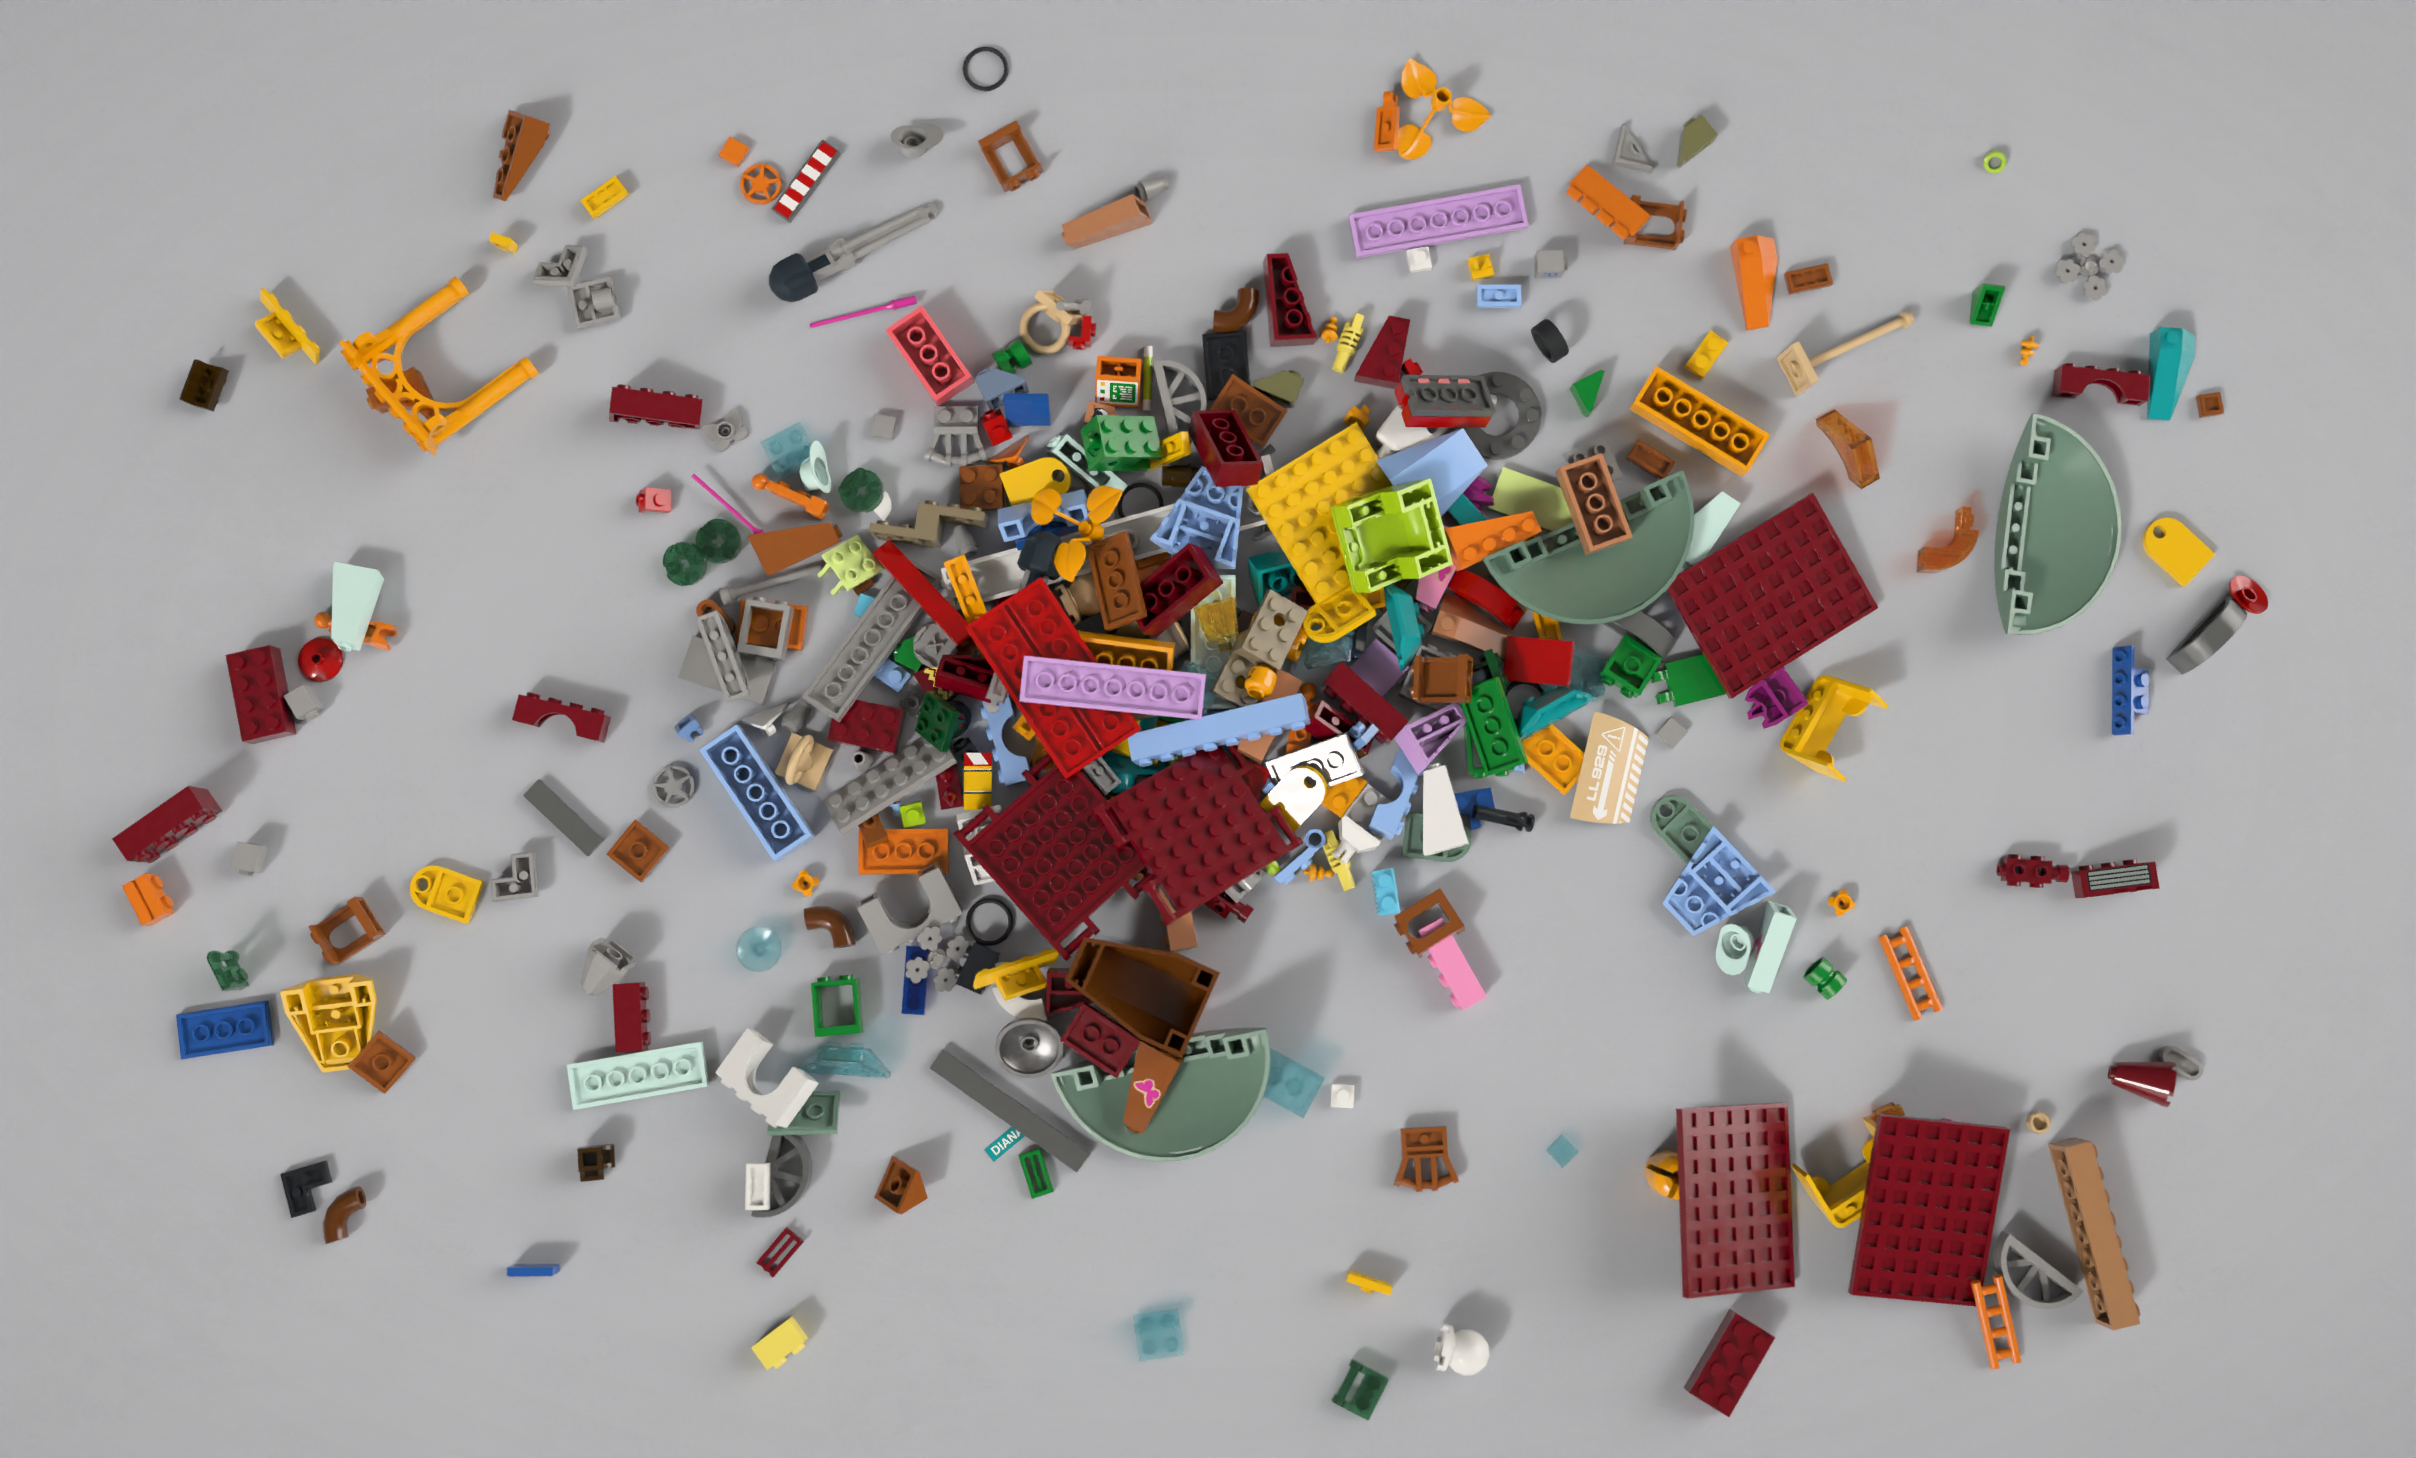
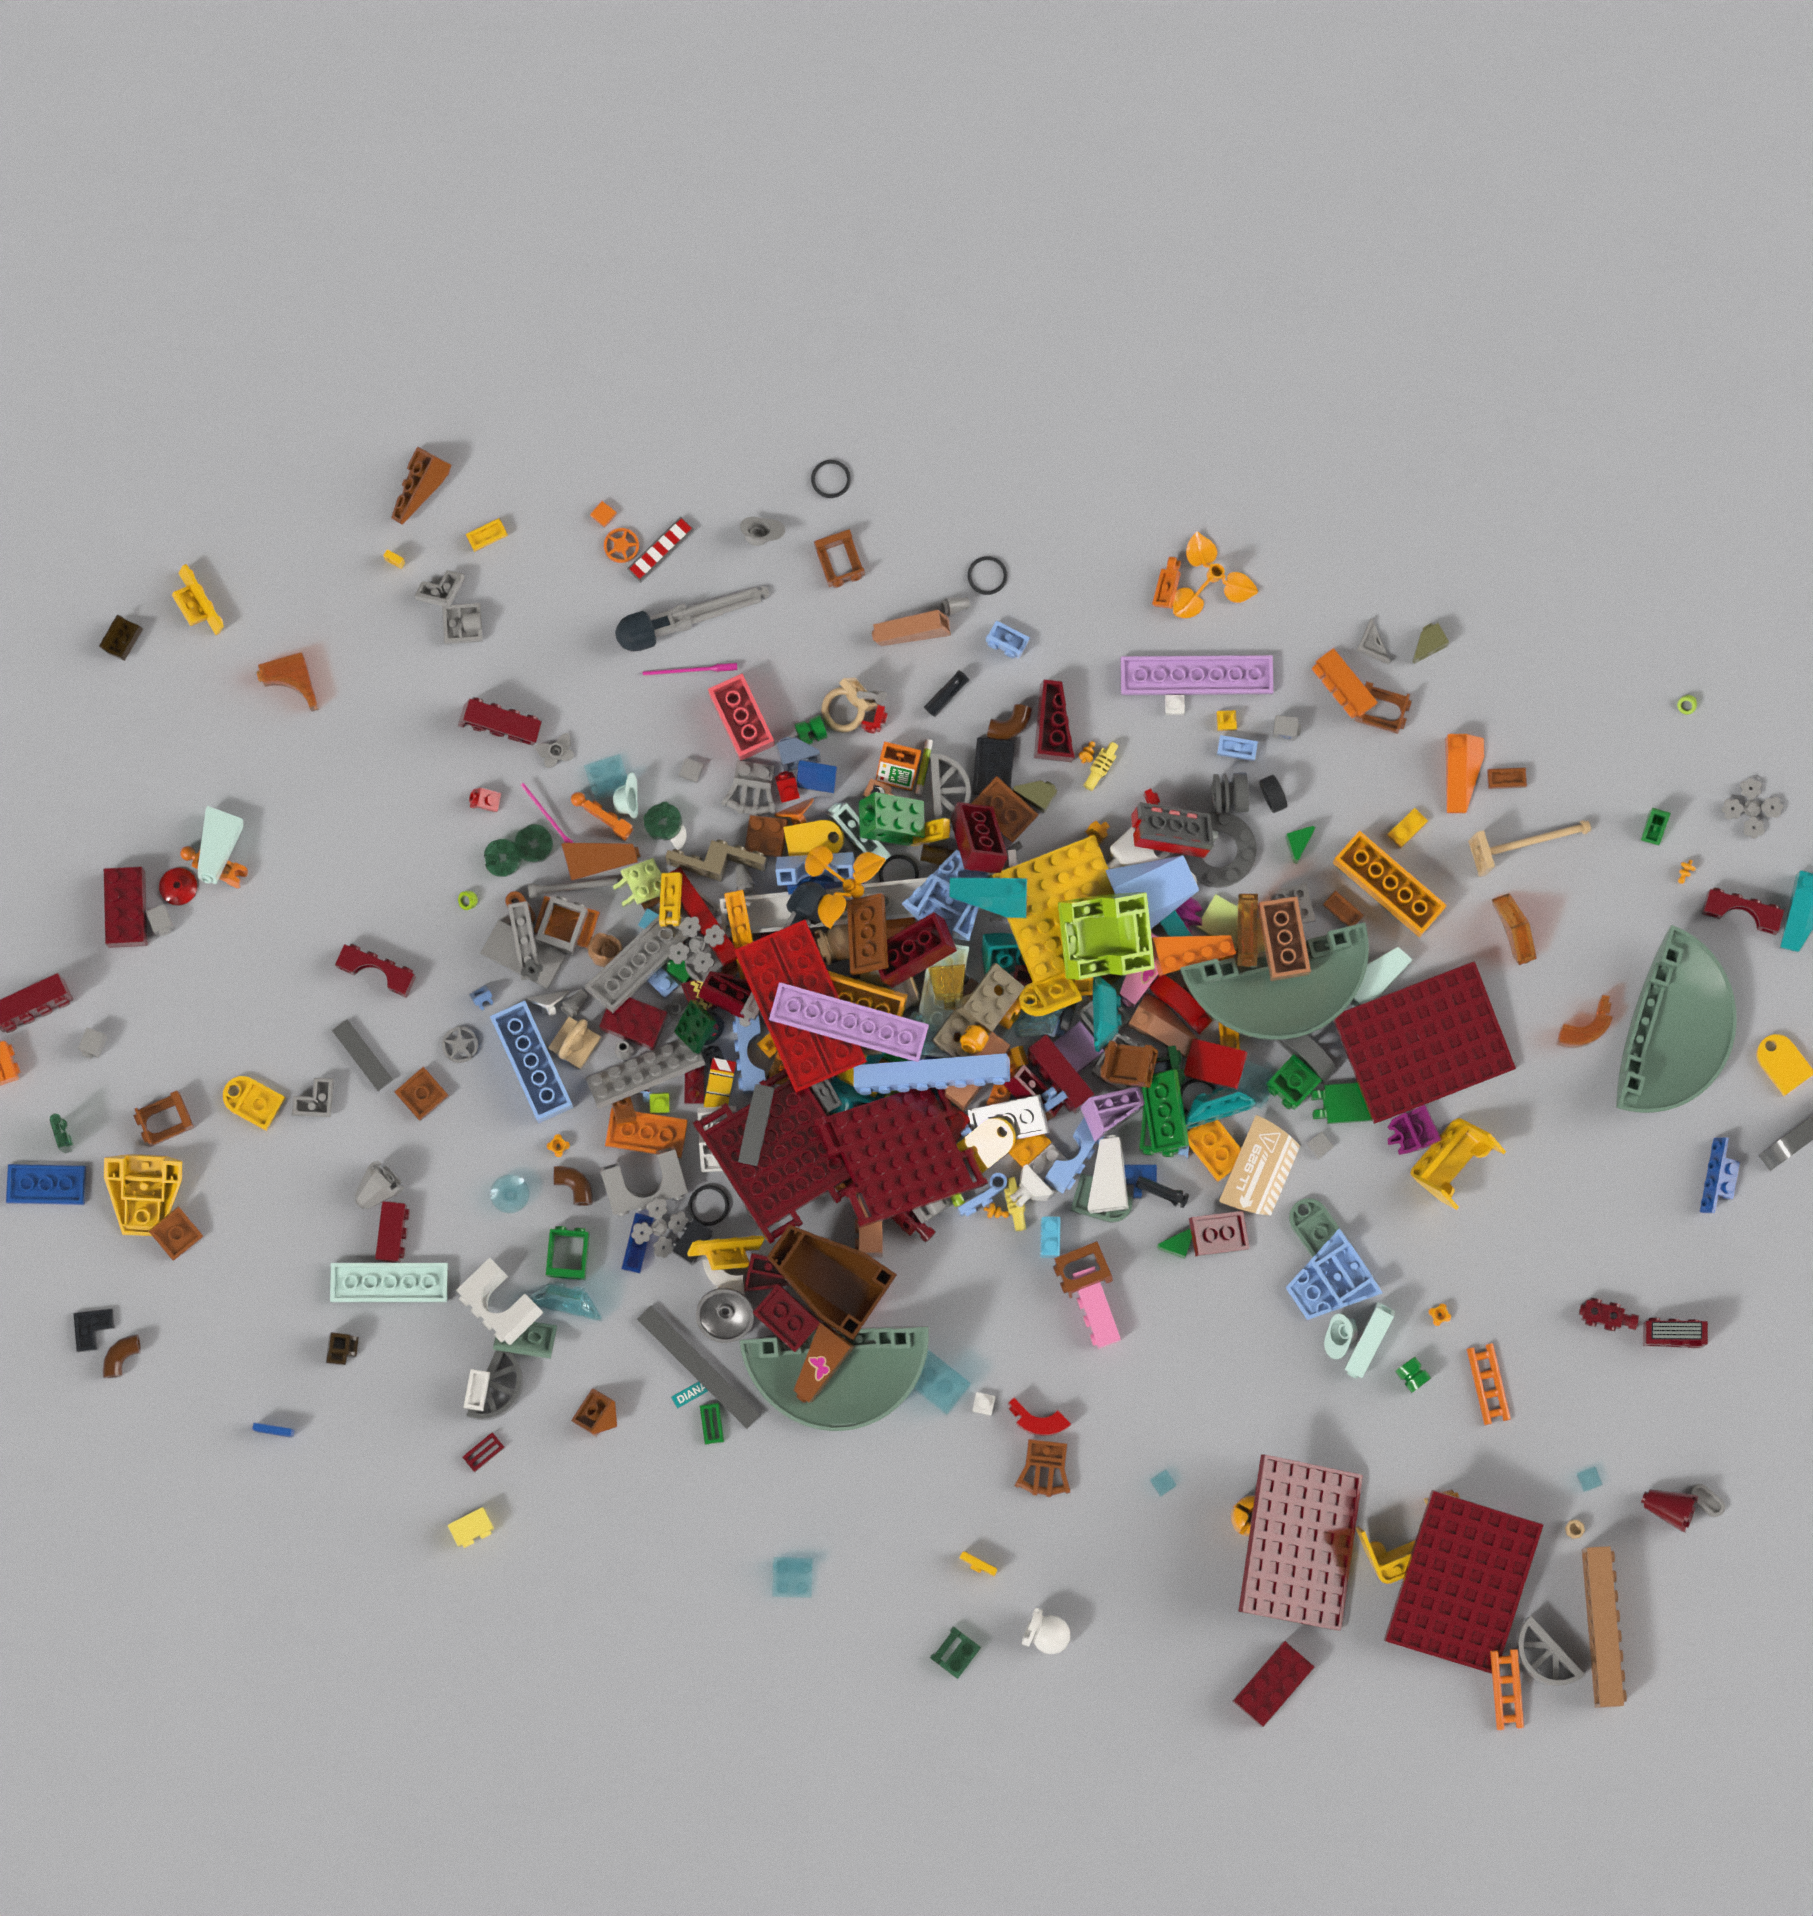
camera: 10 degrees right, 5 degrees down
(437, 429) = (319, 707): light orange arch -> none
(659, 615) = (472, 898): none -> lime piece
(742, 689) = (531, 965): none -> dark grey plate
(818, 648) = (603, 948): none -> medium nougat hair
(884, 578) = (670, 899): none -> yellow plate
(923, 626) = (697, 944): none -> light grey plant
(1026, 825) = (756, 1124): none -> dark grey slope
(1158, 290) = (946, 694): none -> black piece
(1180, 168) = (992, 559): none -> black tyre
(1217, 217) = (1007, 640): none -> light blue bracket
(1259, 510) = (995, 895): none -> teal wedge
(1313, 691) = (1018, 1056): none -> light orange tile
(1386, 355) = (1131, 782): dark red wedge -> none
(1414, 1111) = (1038, 1426): none -> red arch
(1506, 347) = (1230, 792): none -> dark grey wheel
(1533, 874) = (1177, 1245): none -> green slope
(1548, 501) = (1246, 930): none -> clear orange arch
(1577, 855) = (1219, 1233): none -> plate
(2043, 1062) = (1589, 1479): none -> clear light blue tile

